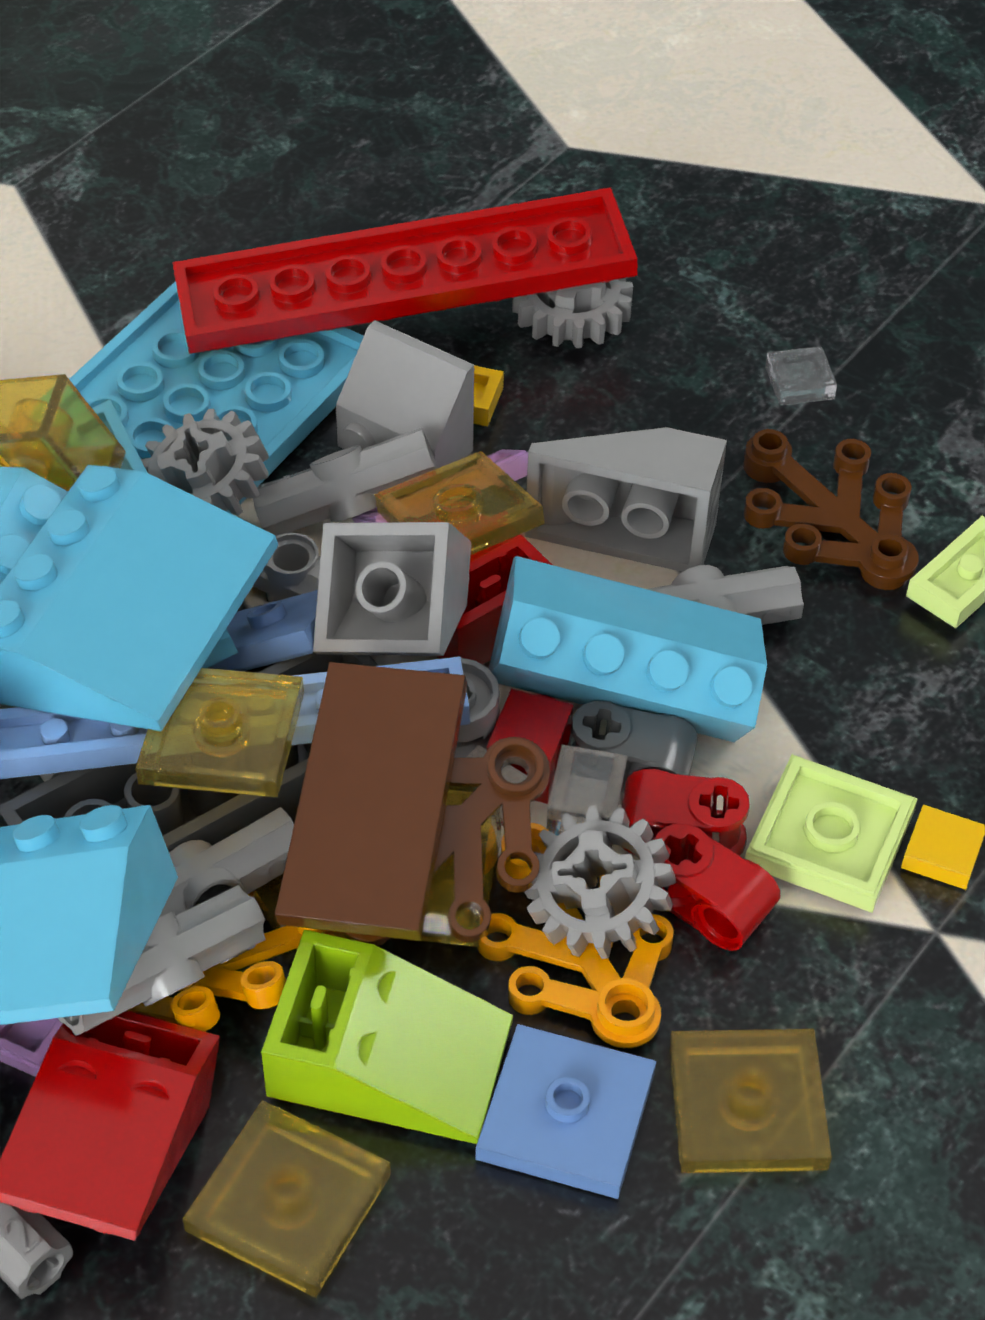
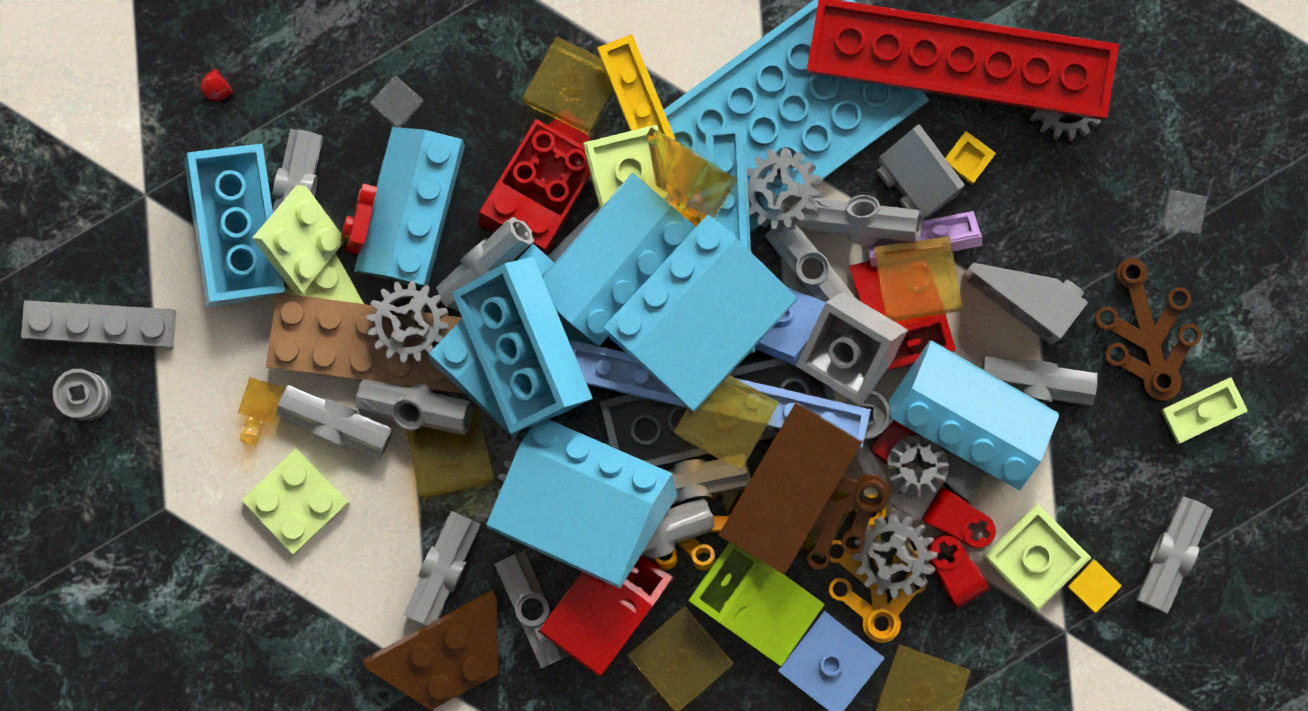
camera: 25 degrees right, 35 degrees up
(568, 762) = (905, 478): none -> light grey gear

